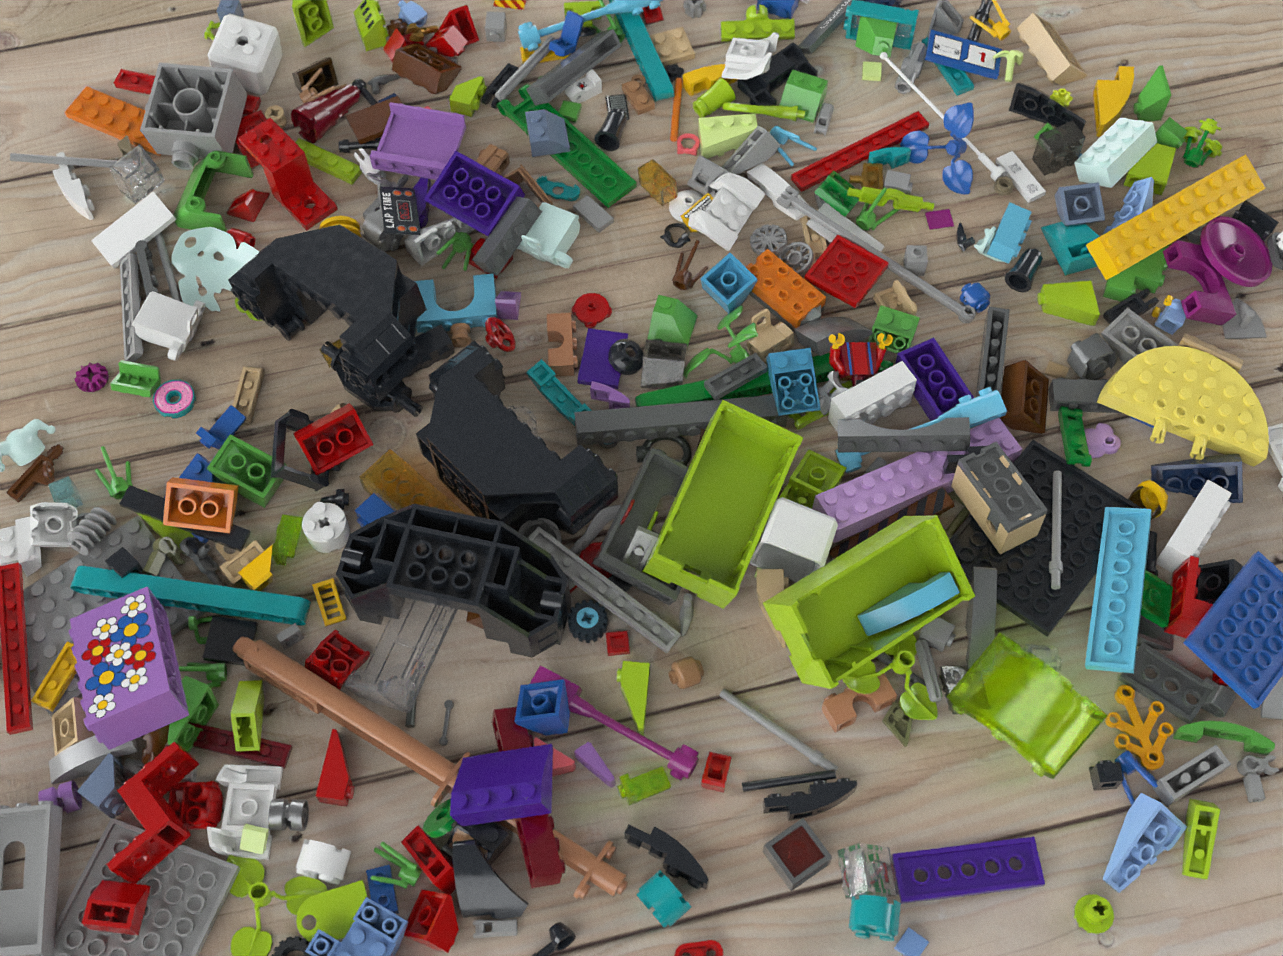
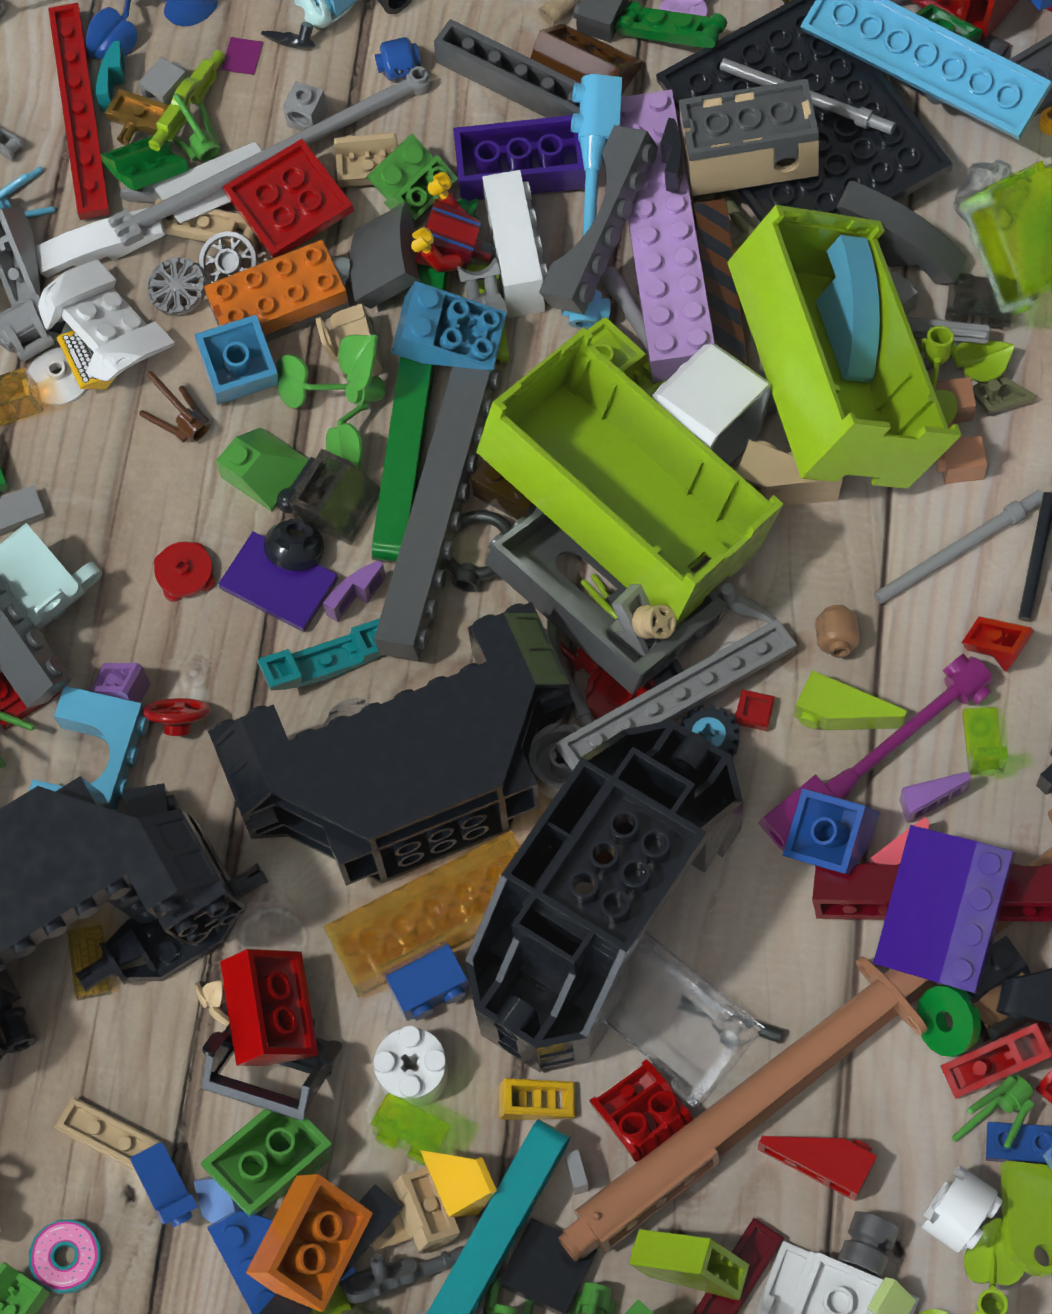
camera: 65 degrees left, 5 degrees up
(341, 498) = (368, 1033): black plate -> none
(448, 705) = (766, 973): dark grey hinge -> none
(460, 334) = (147, 770): medium nougat wheel -> none
(561, 330) = (206, 619): nougat arch -> none
(637, 560) = (654, 621): none -> tan wheel
(681, 241) = (104, 420): black piece -> none
(735, 376) = (405, 403): dark grey plate -> none

